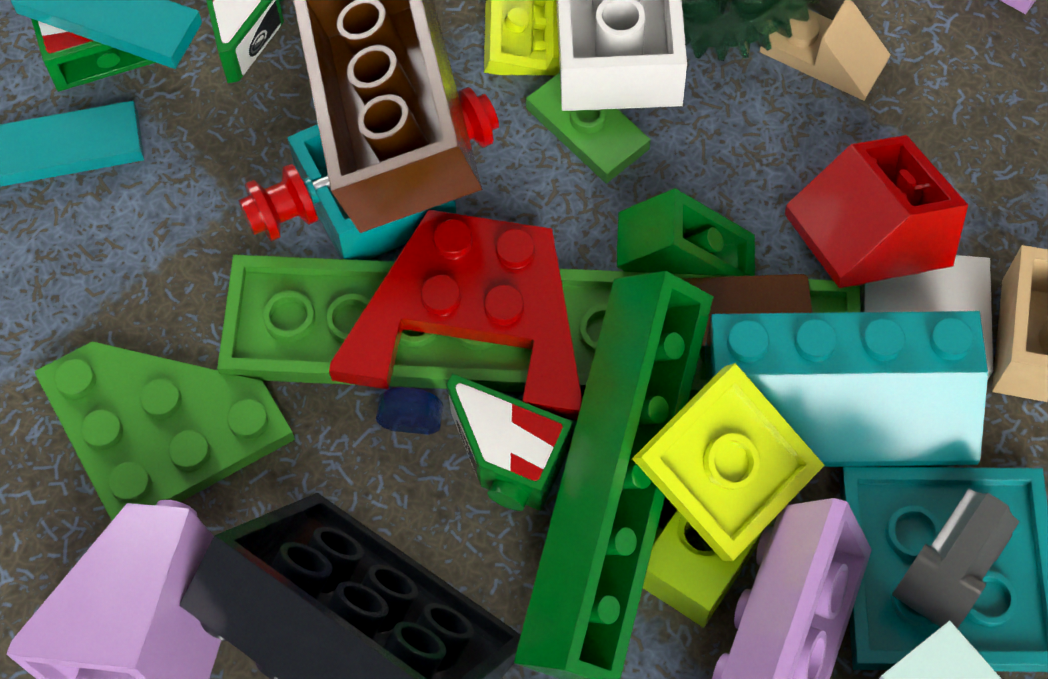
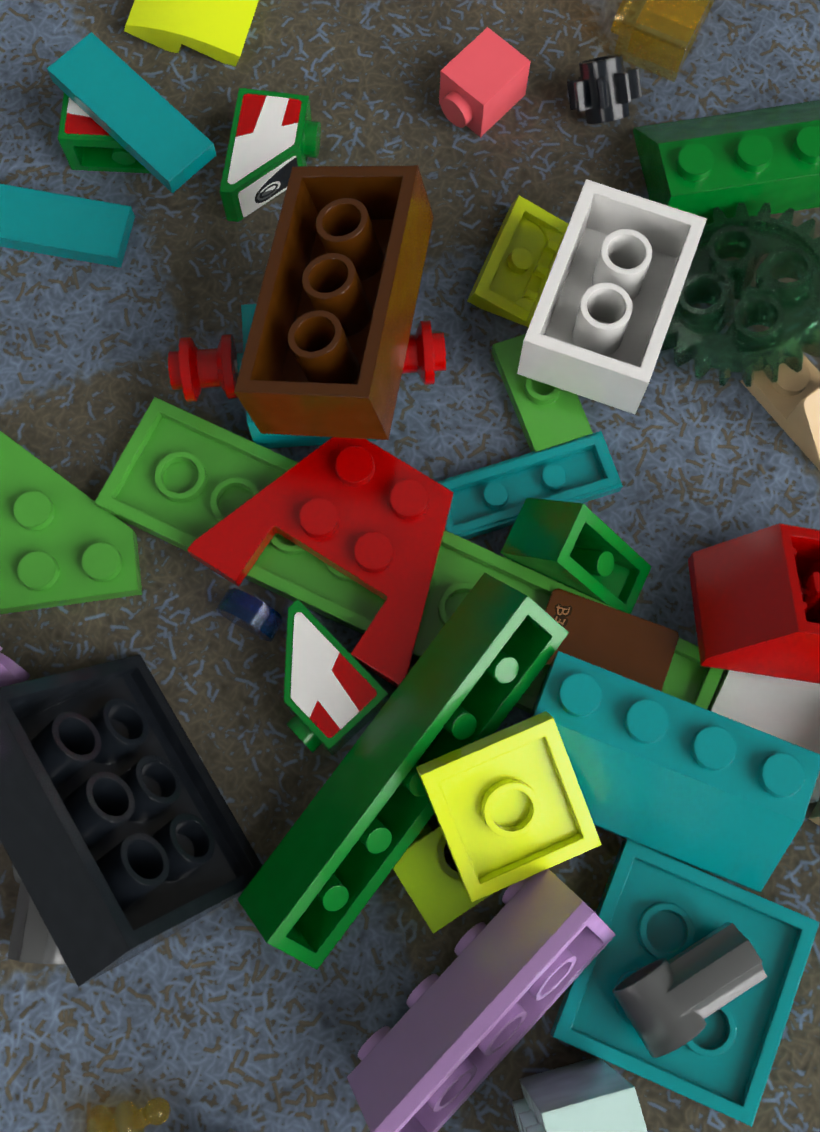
camera: 20 degrees right, 10 degrees up
(589, 223) = (495, 494): none -> teal tile

